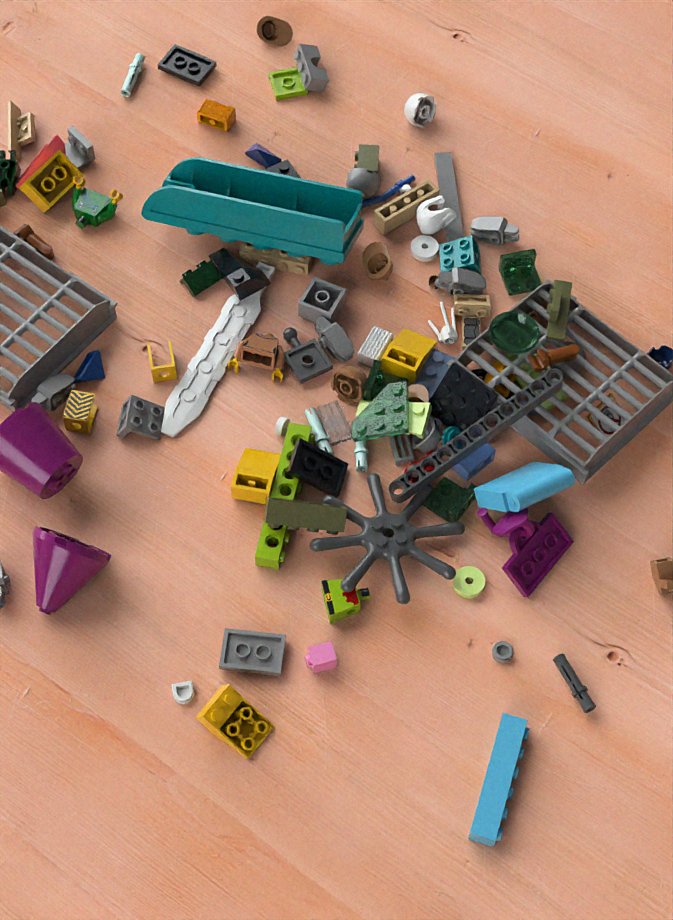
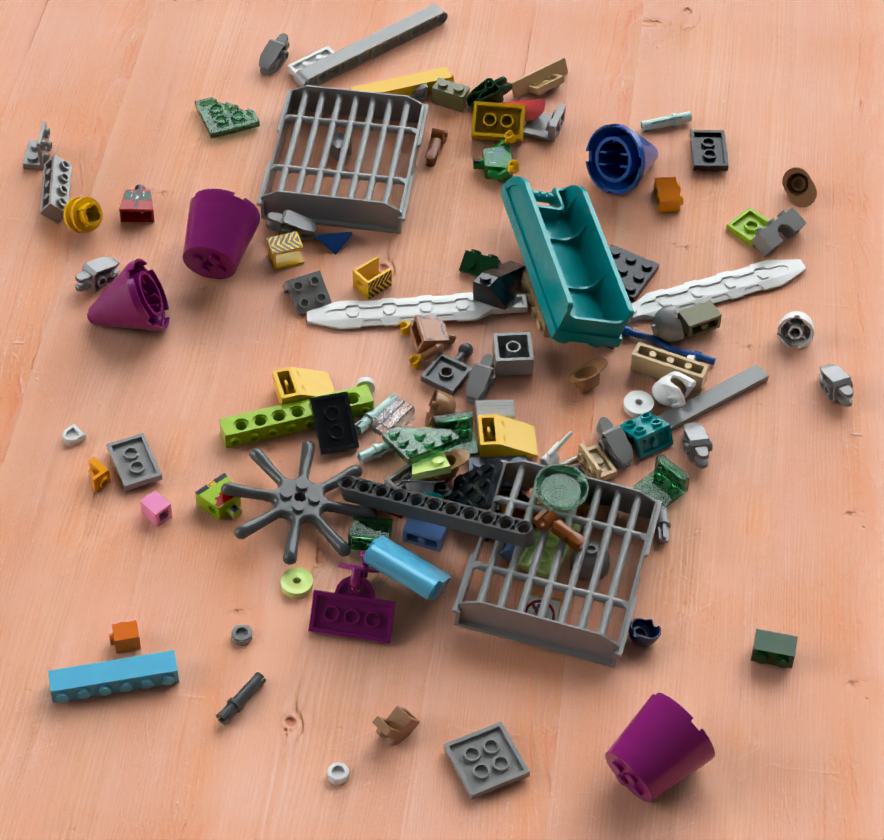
camera: 60 degrees right, 10 degrees down
(167, 122) = (618, 158): none -> blue cone
(235, 721) = (64, 476): yellow slope -> none
(249, 686) = (99, 474): none -> light orange bracket
(262, 156) = (651, 247): blue slope -> none
(305, 515) = (275, 429): olive brick -> none
(338, 131) = (718, 288): none -> white plate
(456, 748) = (125, 636): none -> orange brick
(489, 115) = (836, 384): none -> light grey hinge
(558, 310) = (619, 511): olive bracket -> none

